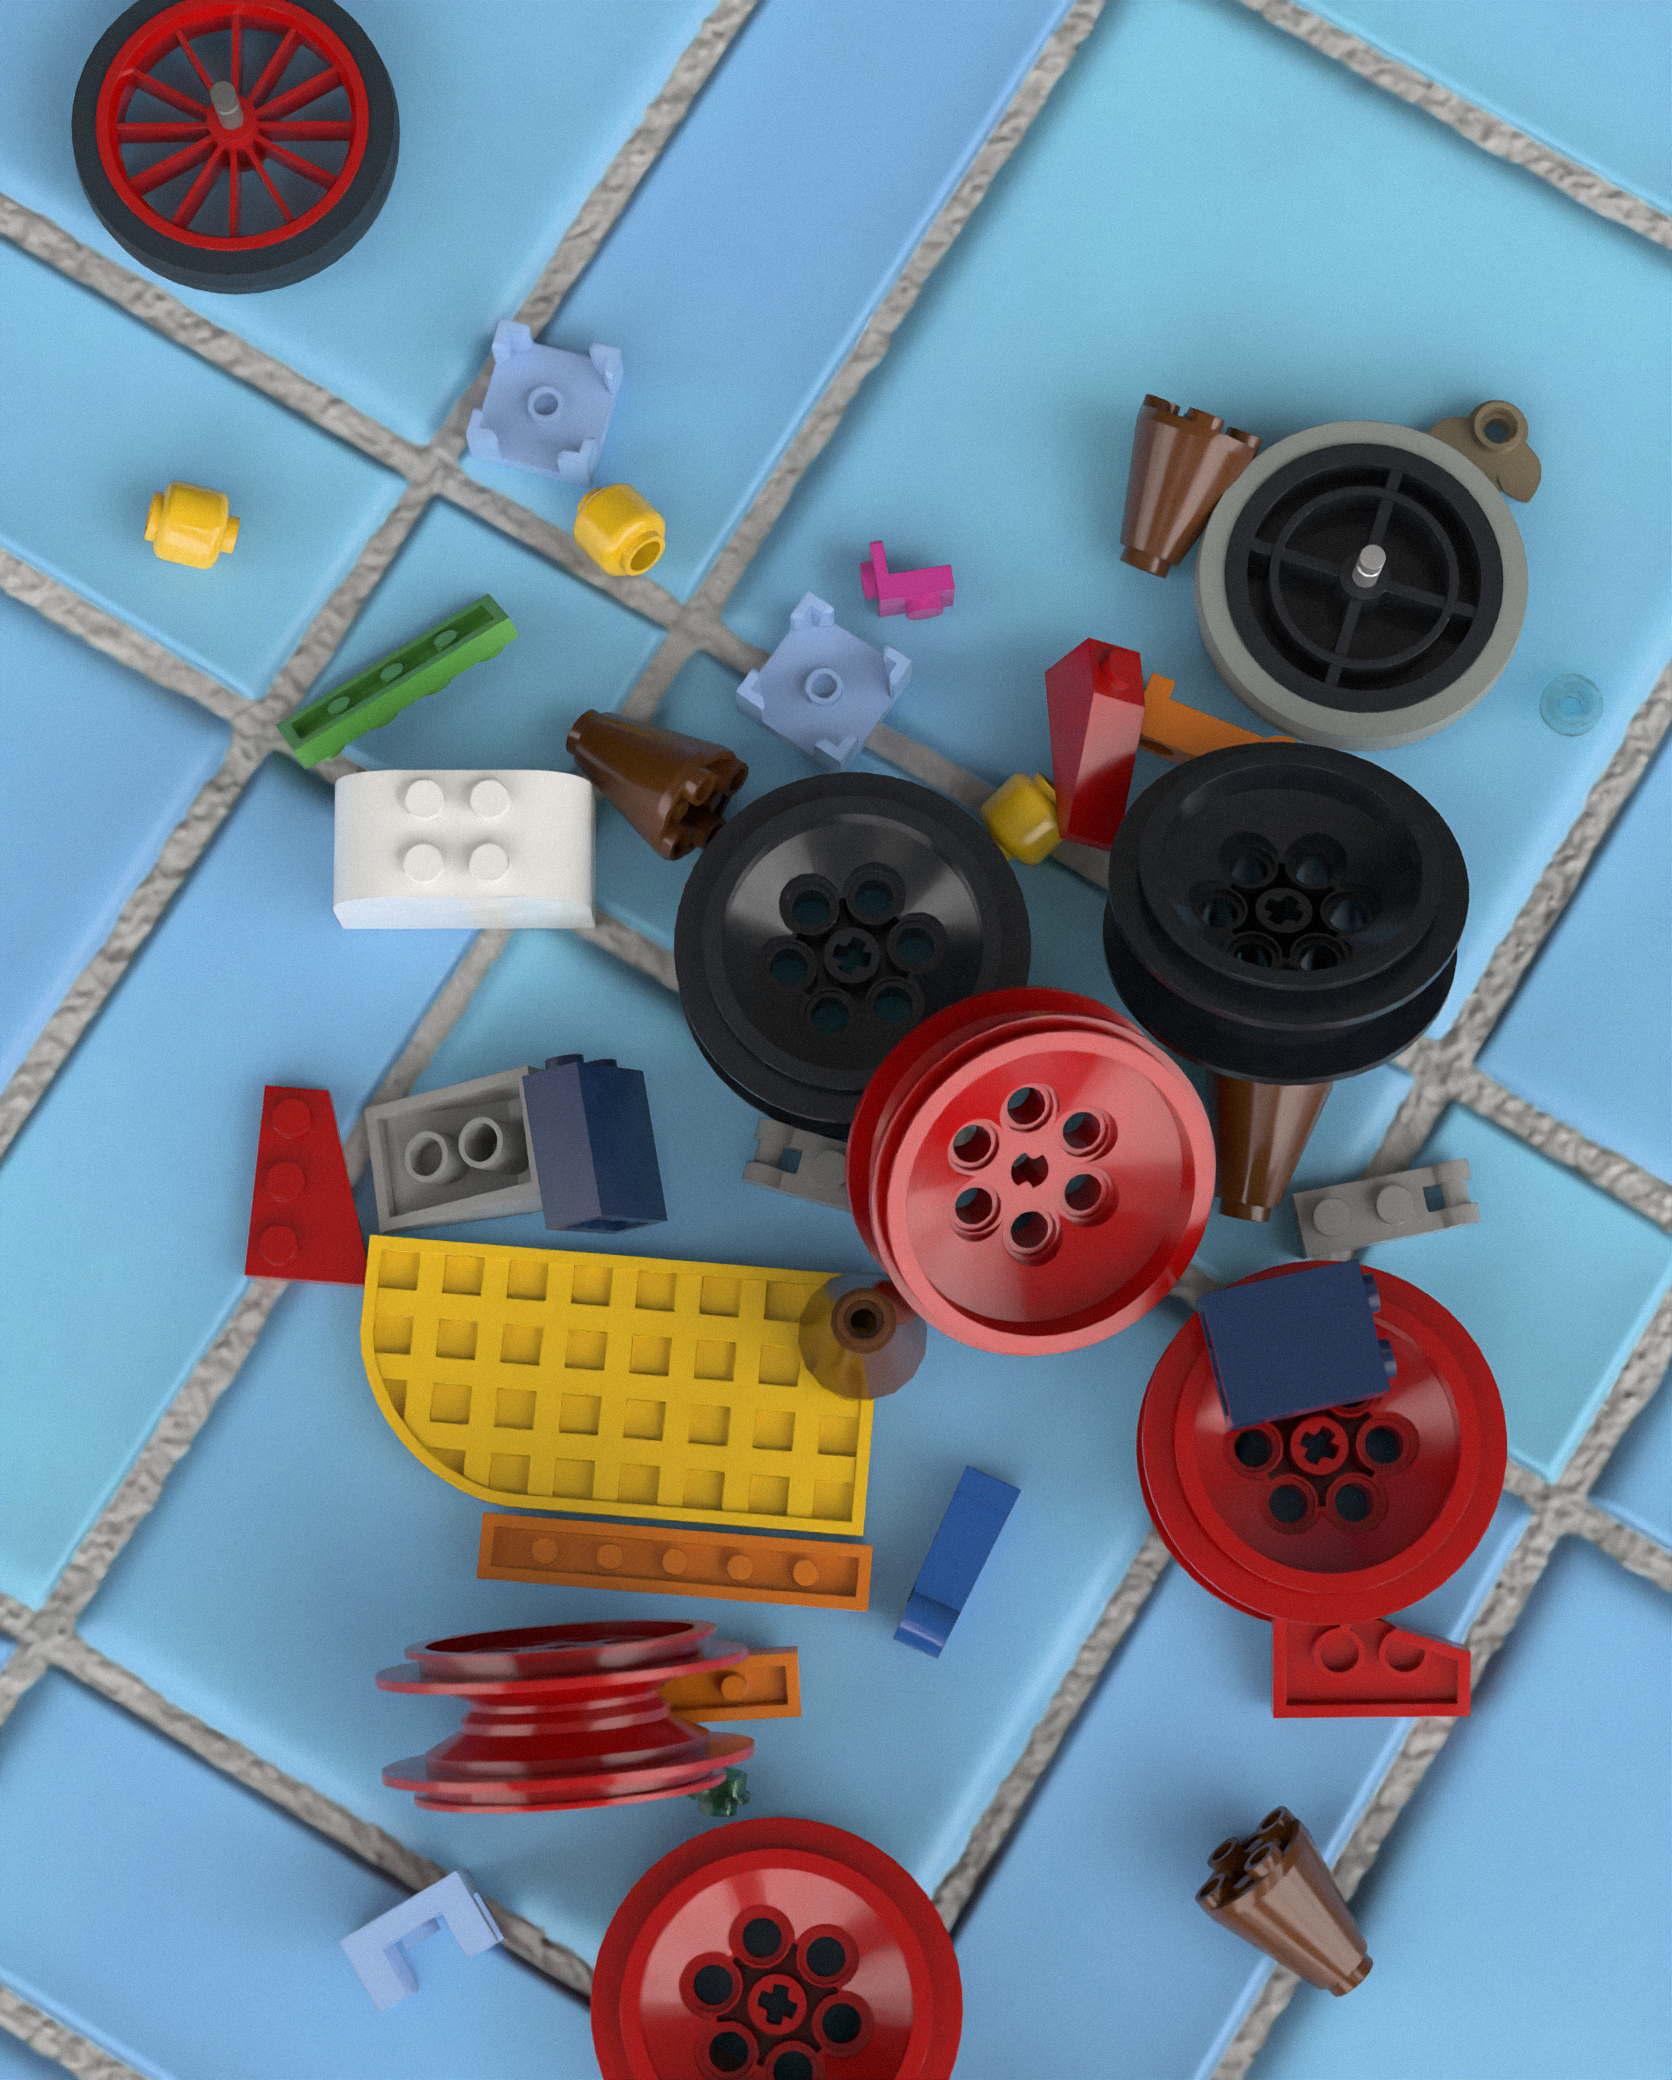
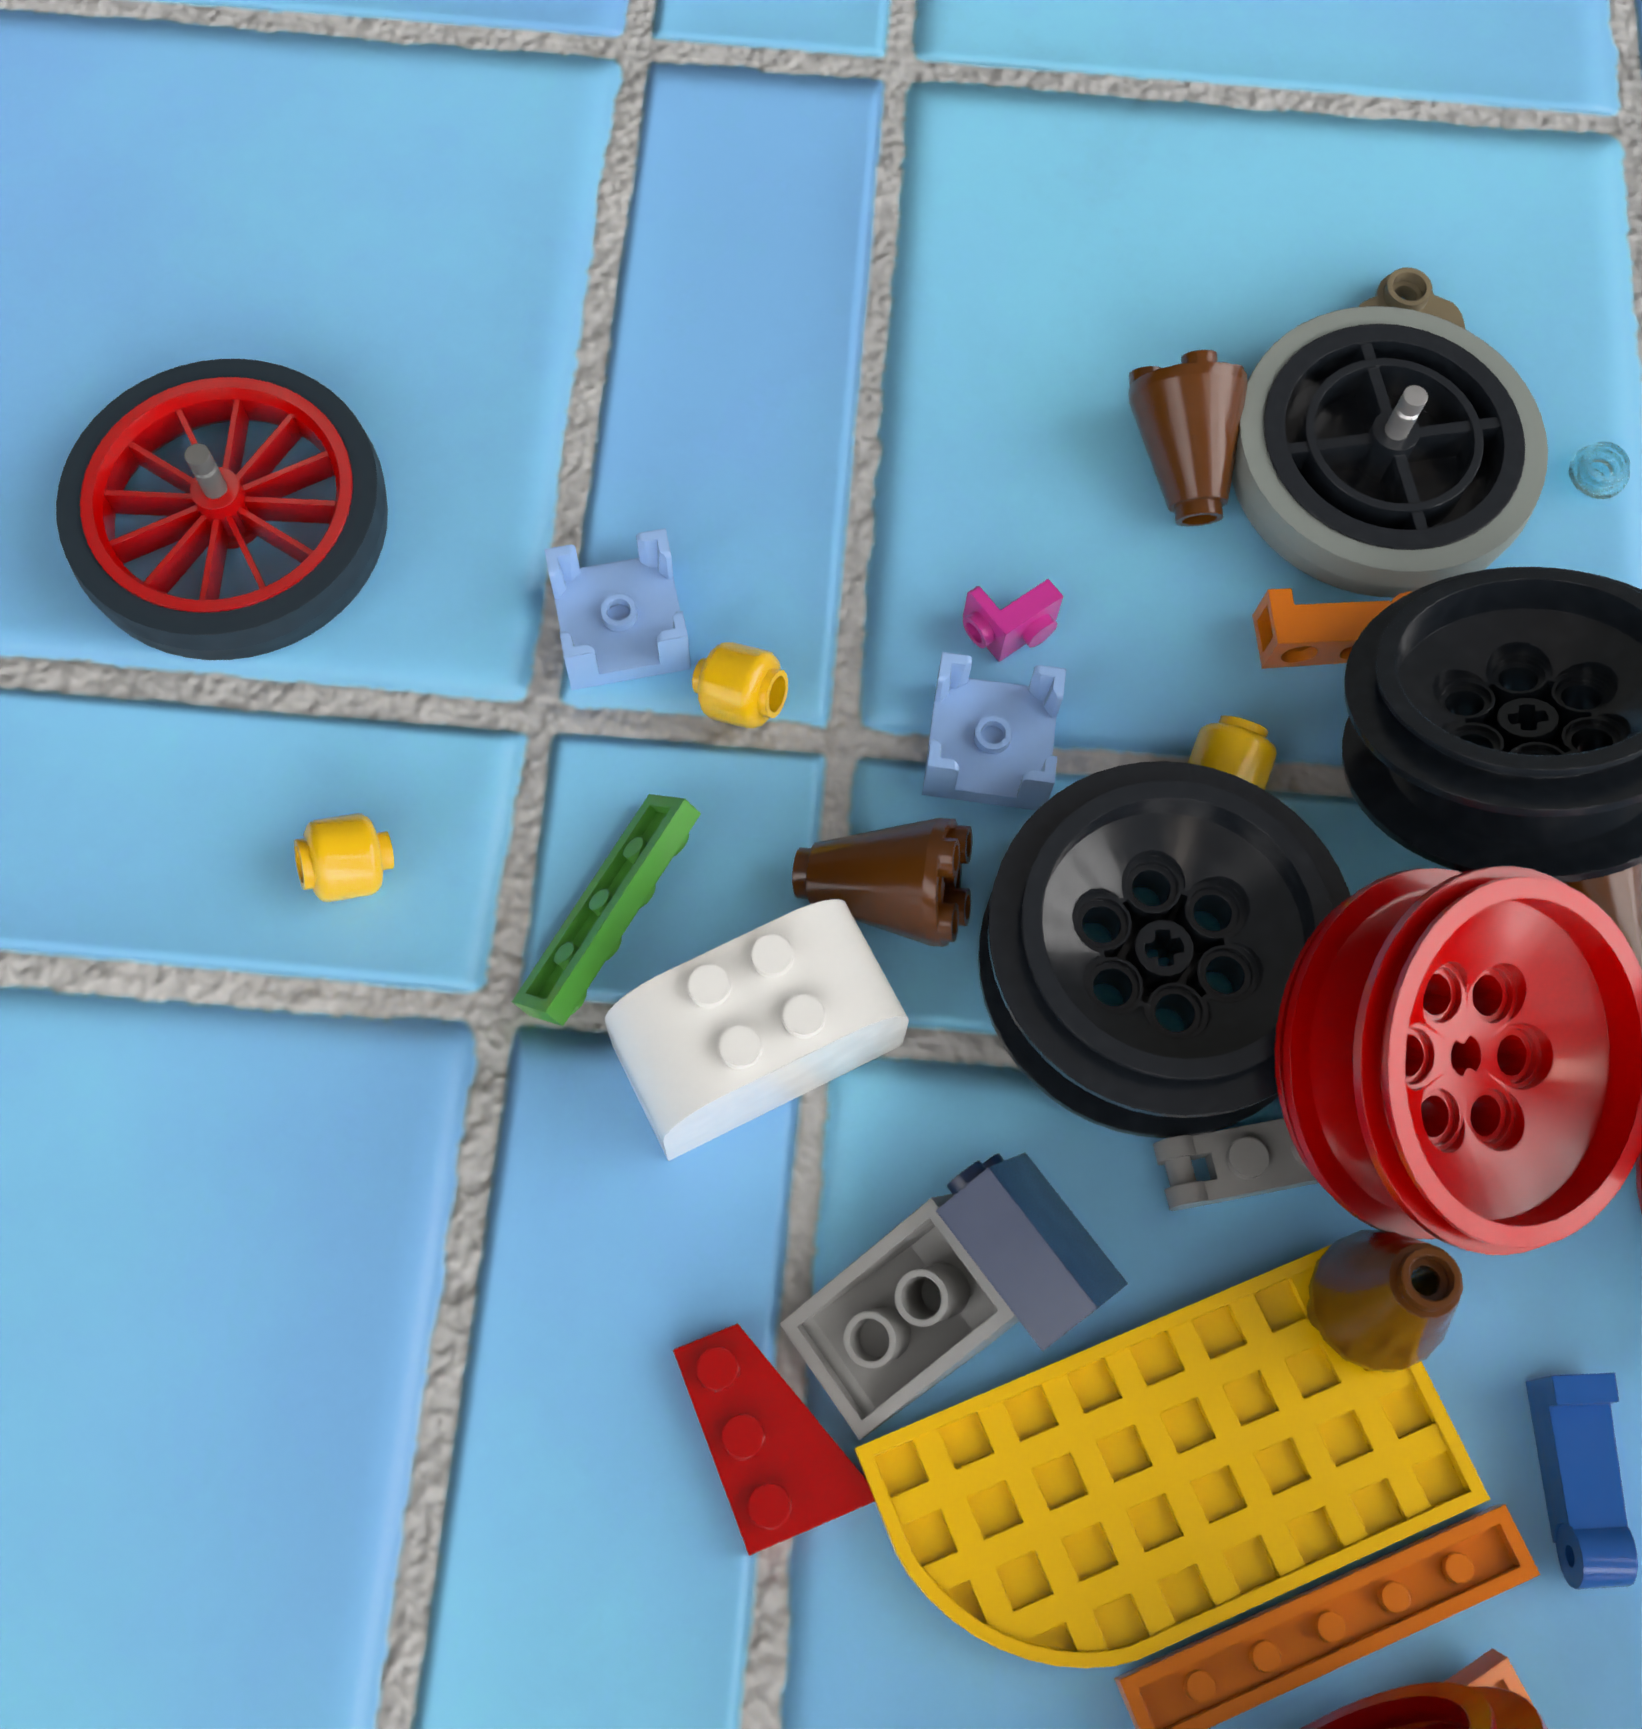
camera: 30 degrees left, 10 degrees down
(1094, 738) = (1255, 660): red slope -> none

